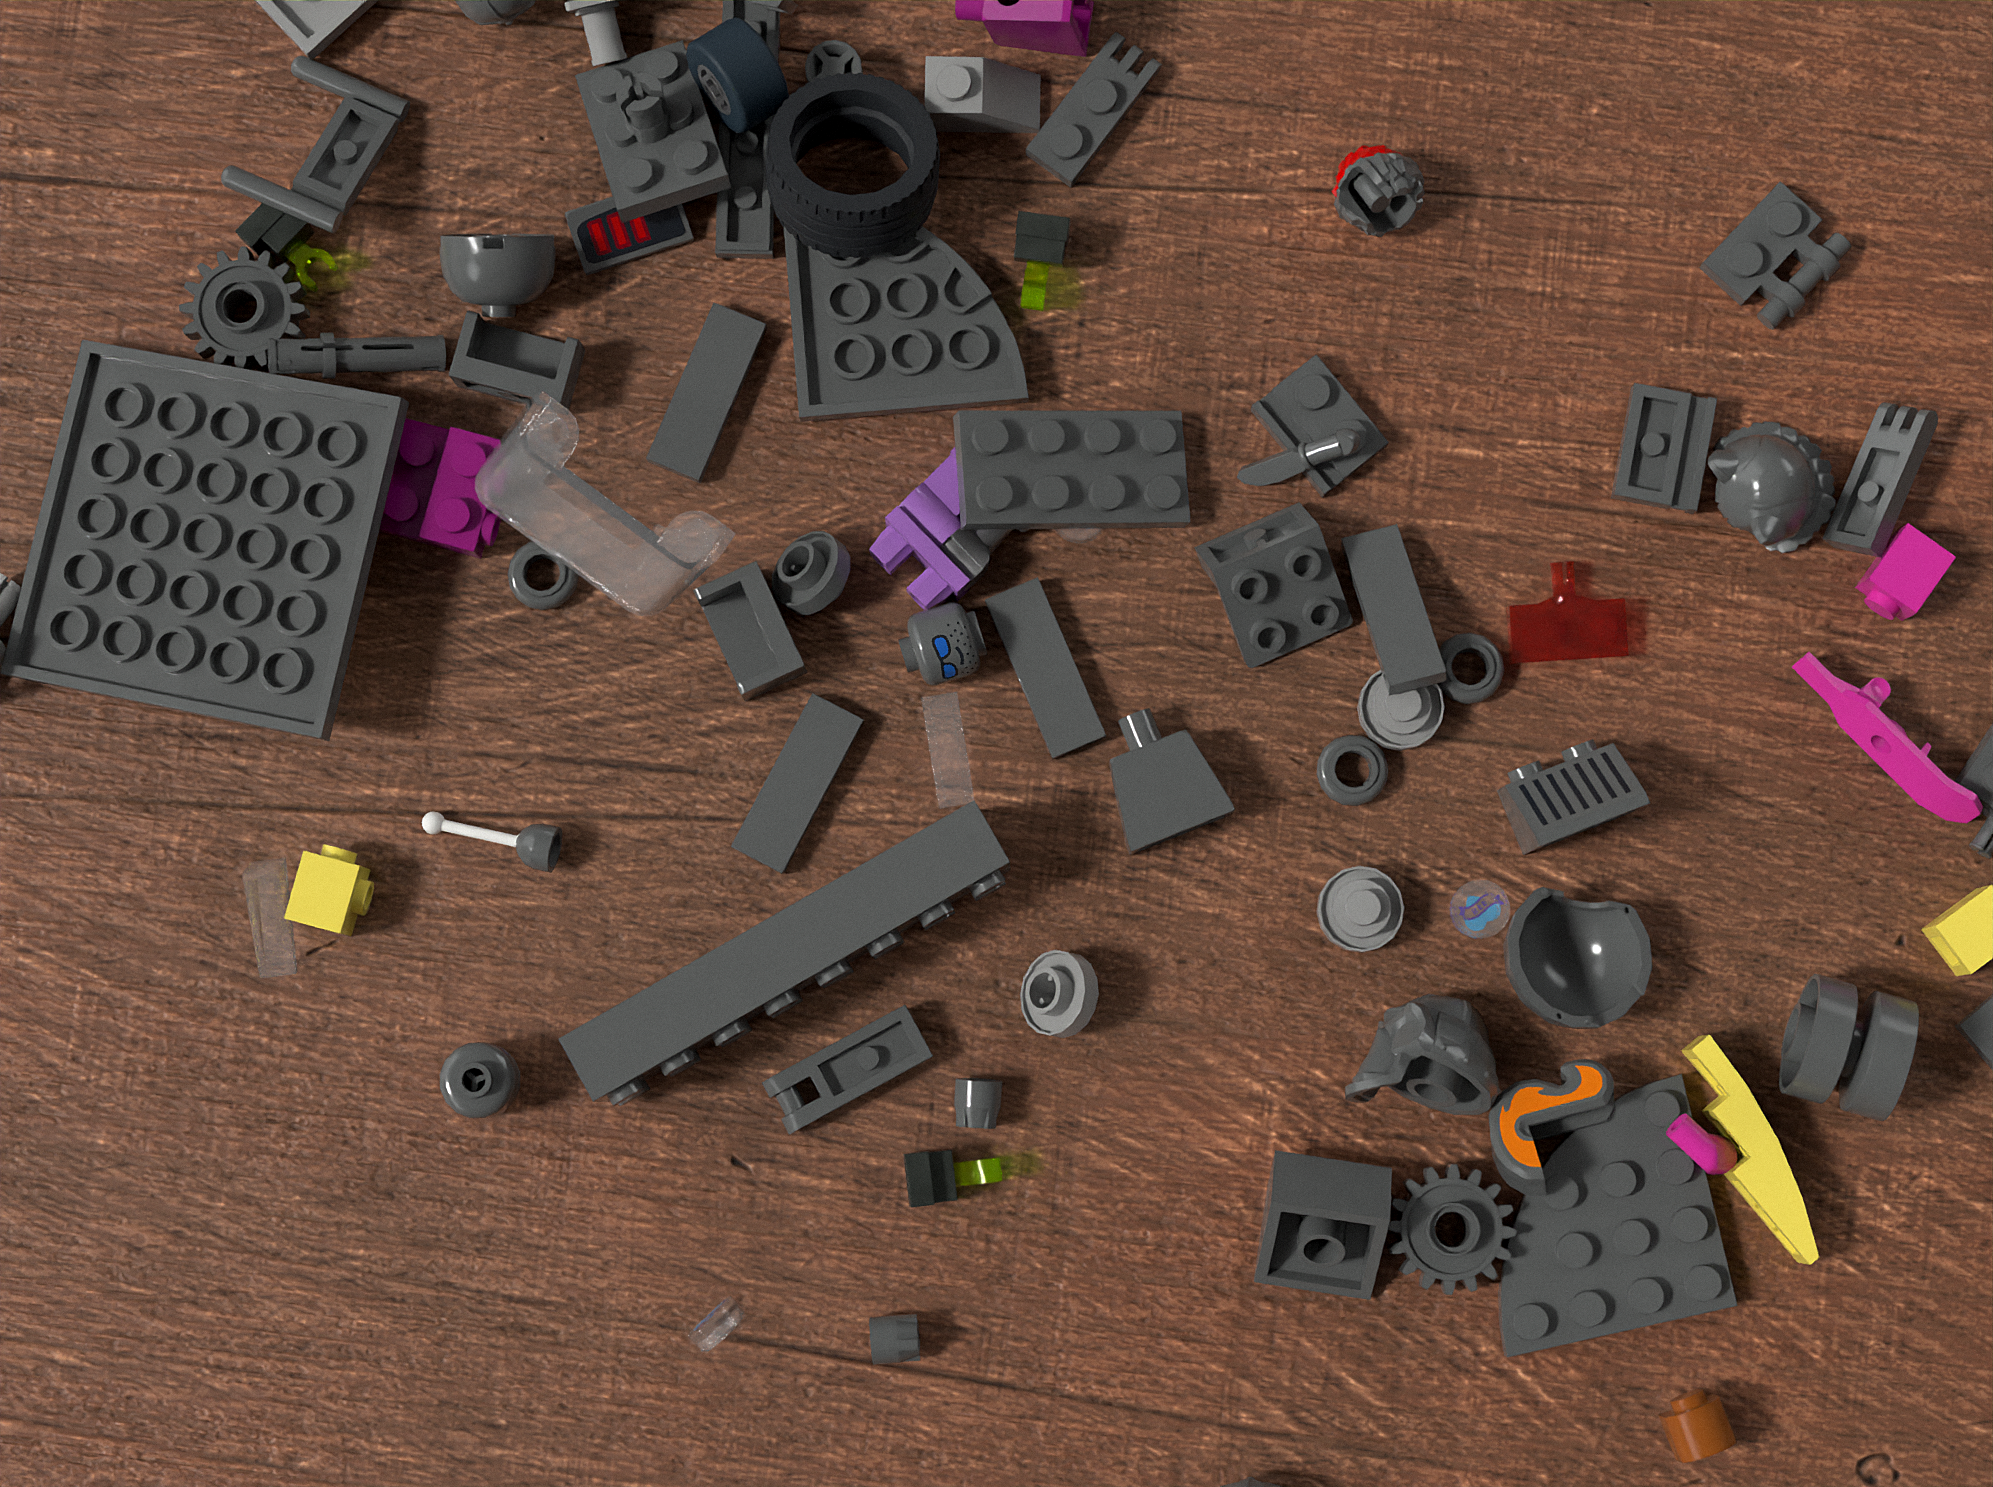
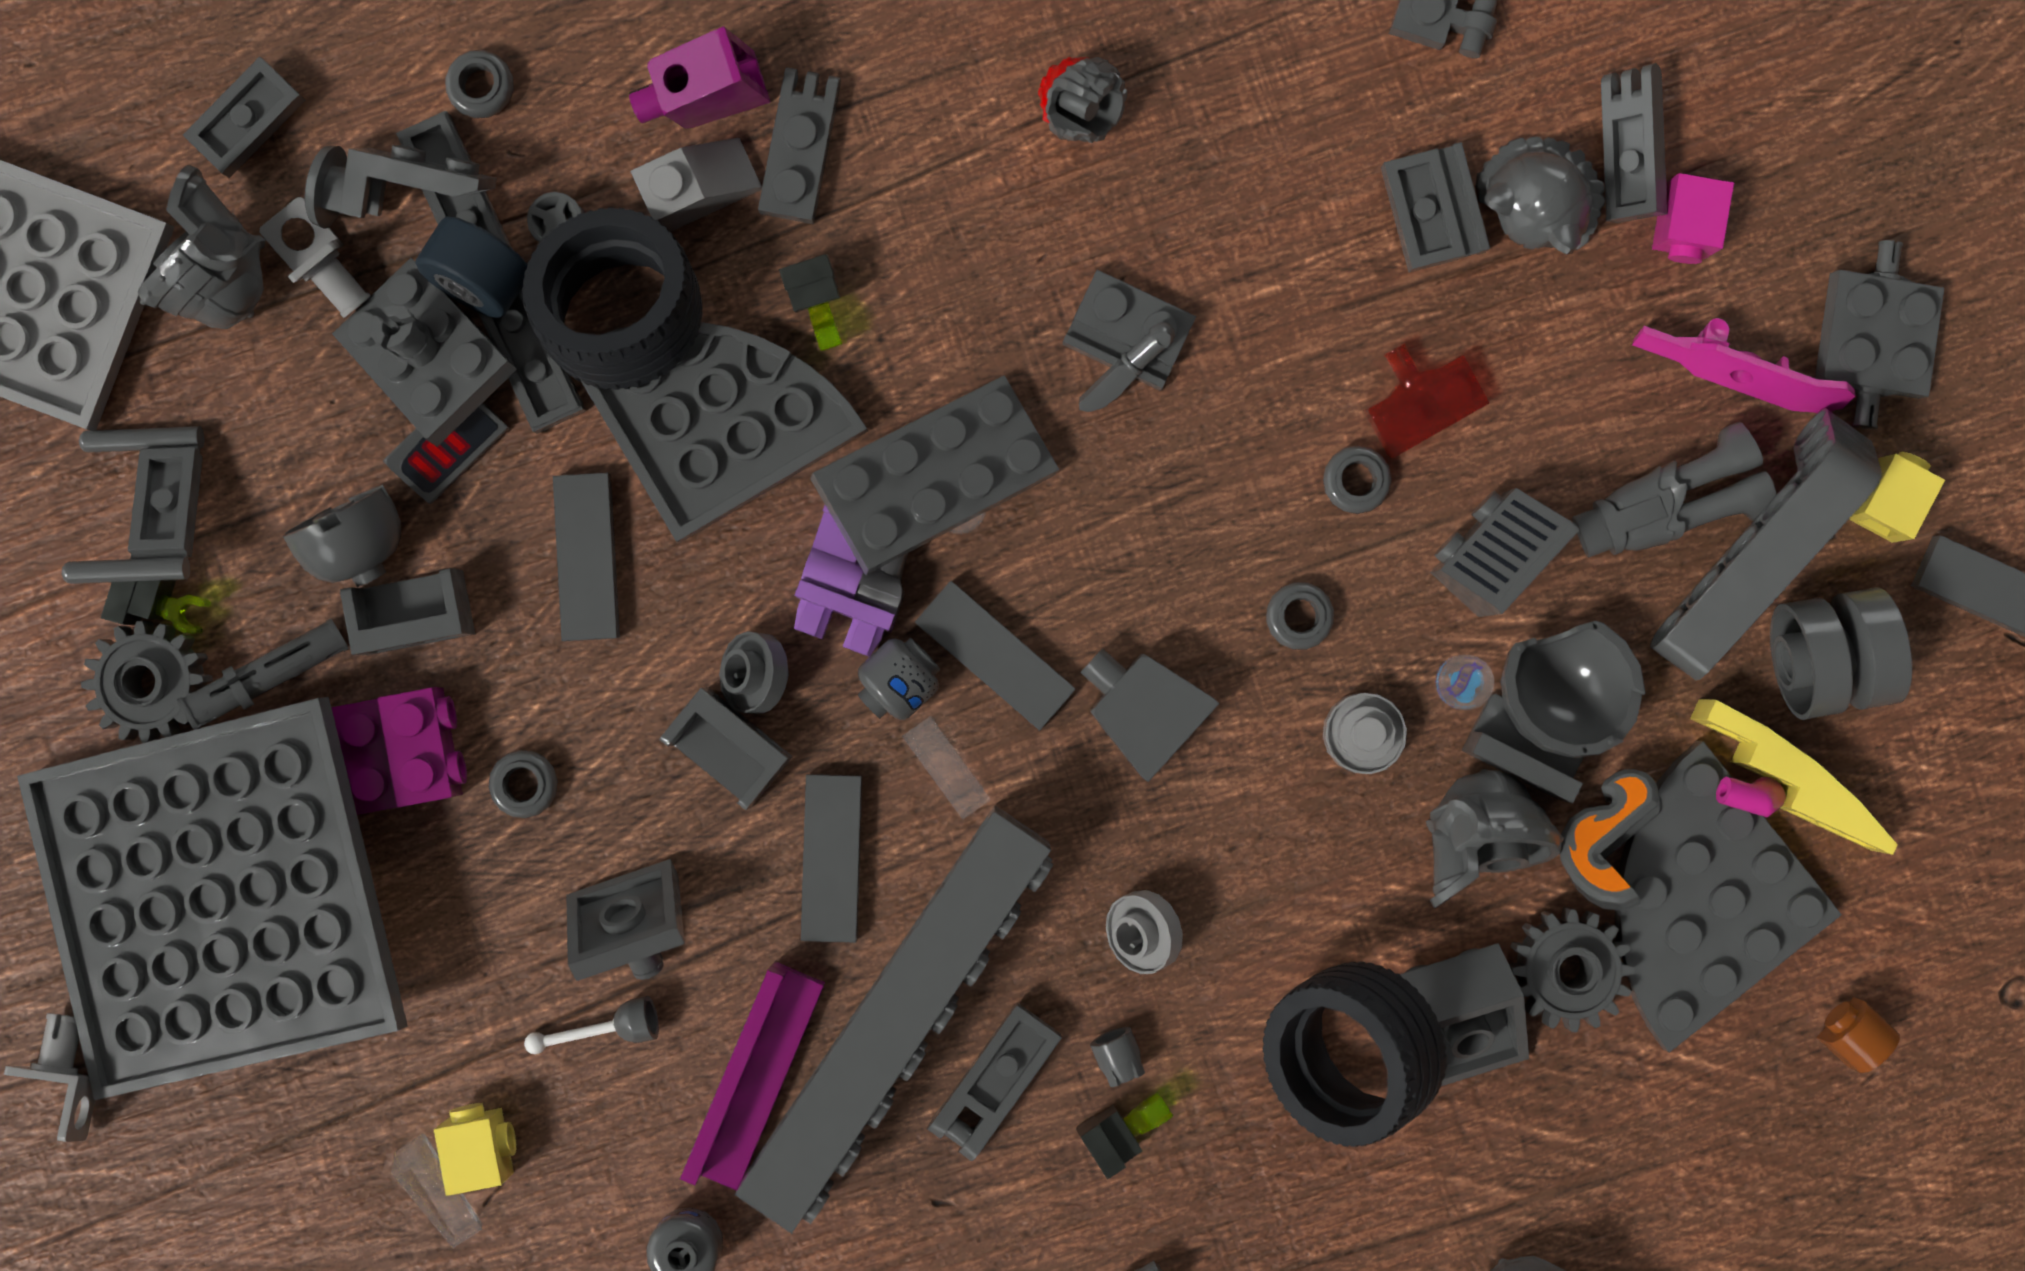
camera: 30 degrees left, 5 degrees up
(577, 746) = (625, 922): none -> dark grey tile
(584, 529) = (468, 726): clear windscreen -> none
(623, 951) = (753, 1077): none -> magenta fence
(1257, 1201) = (1313, 1085): none -> black tyre
(1276, 584) = (1157, 486): dark grey bracket -> none
(1393, 609) = (1271, 462): dark grey tile -> none
(1402, 718) = (1316, 542): light grey plate -> none
(1486, 986) = (1500, 745): none -> dark grey panel
(1733, 829) = (1652, 507): none -> dark grey piece
(1828, 914) = (1832, 482): none -> dark grey beam

